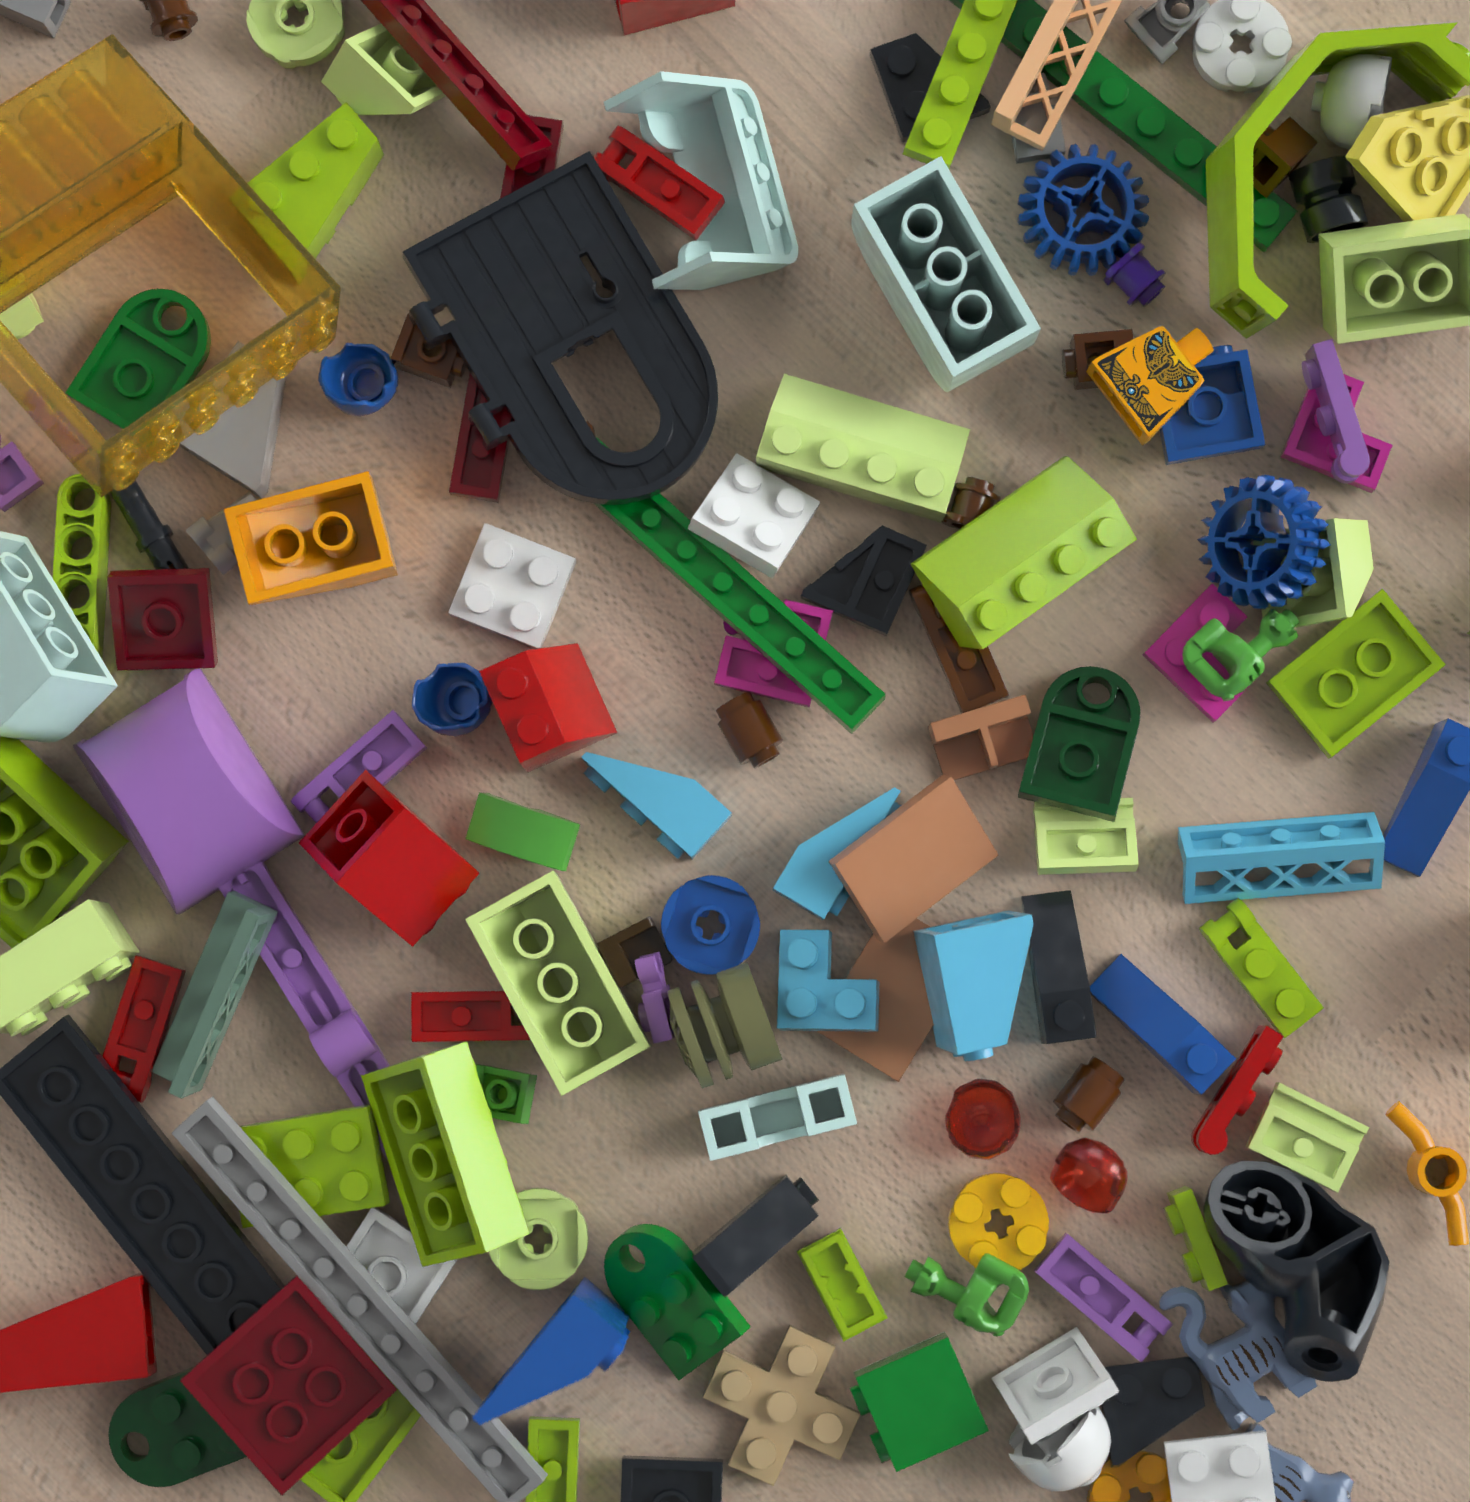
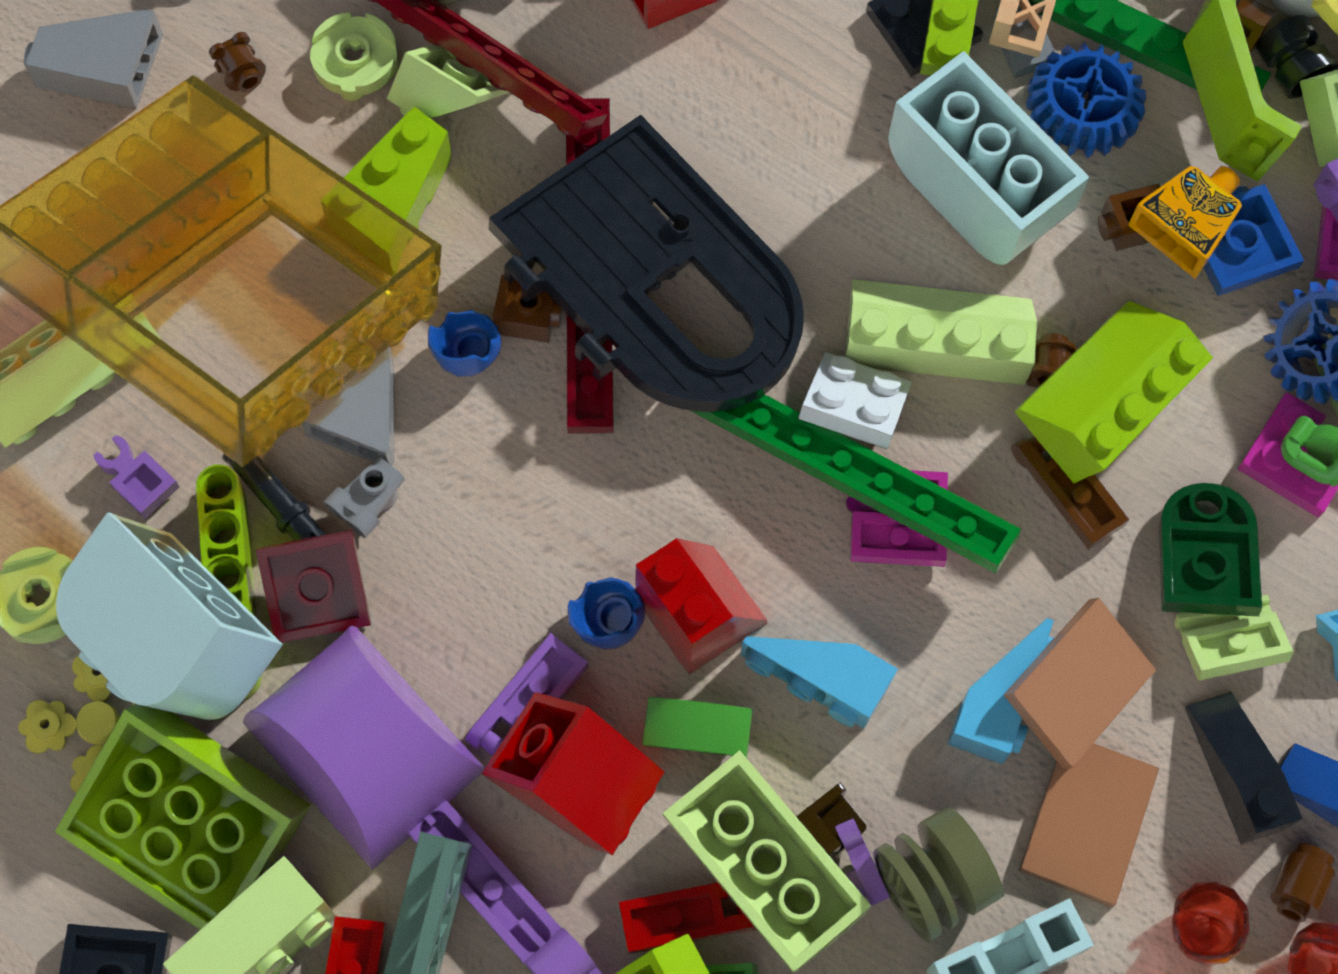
camera: 15 degrees left, 15 degrees down
(139, 360) = (253, 348): green plate -> none
(311, 540) = (448, 486): light orange slope -> none
(512, 586) = (639, 503): white plate -> none
(659, 183) = (709, 136): red plate -> none
(696, 900) = (919, 768): blue plate -> none
(723, 141) = (756, 114): light aqua windscreen -> none
(749, 730) = (894, 594): reddish brown brick -> none
(811, 998) = (1017, 838): medium azure plate -> none
(869, 580) = (974, 442): black wing -> none
(974, 979) = (1170, 786): medium azure slope -> none
(983, 738) = (1113, 563): nougat panel -> none
(1136, 277) = (1147, 146): dark purple brick -> none

